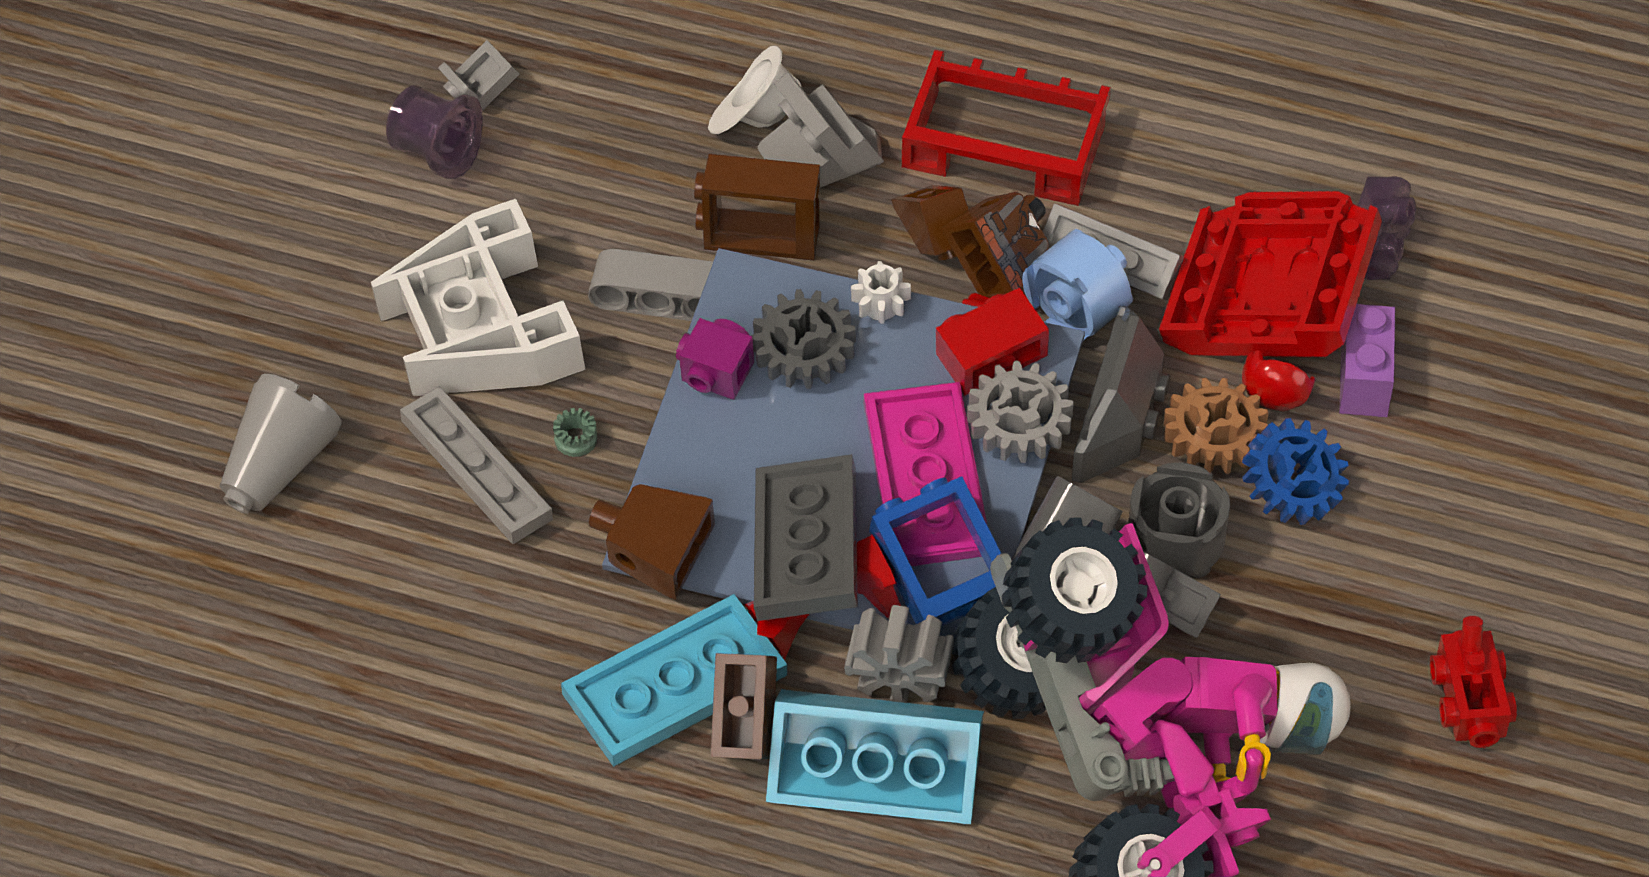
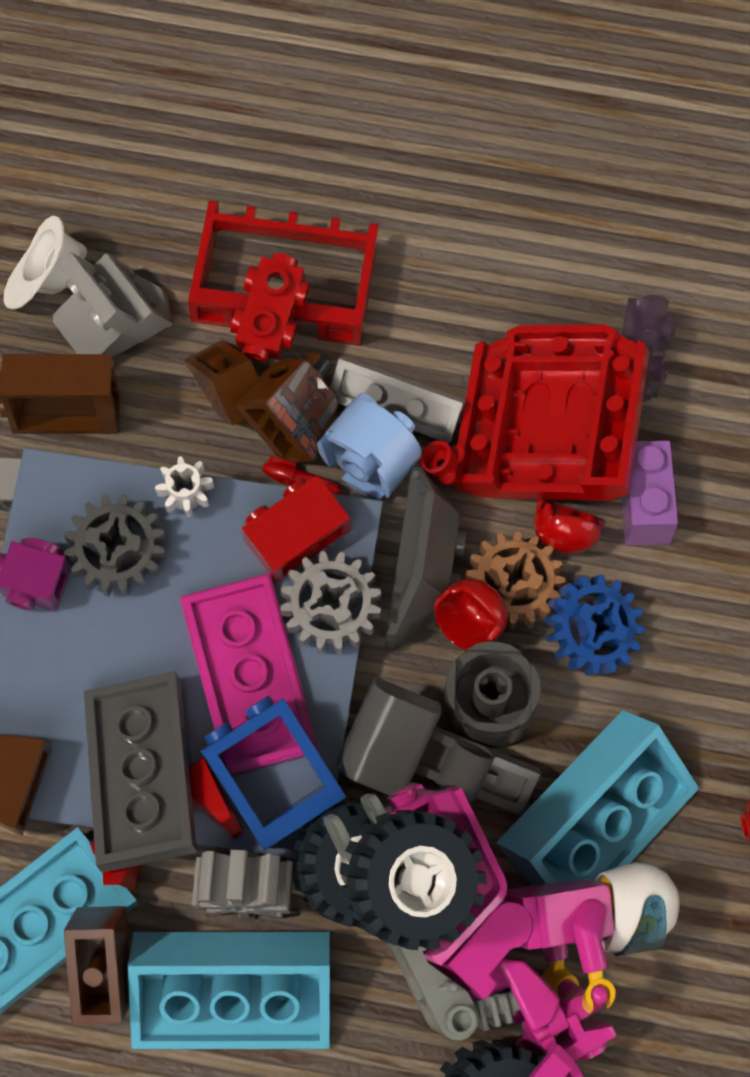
camera: 10 degrees left, 15 degrees up
(987, 148) = (266, 321): none -> red brick
(1152, 306) = (435, 454): none -> red plate
(1164, 435) = (470, 613): none -> red hair
(1302, 615) = (601, 806): none -> medium azure slope

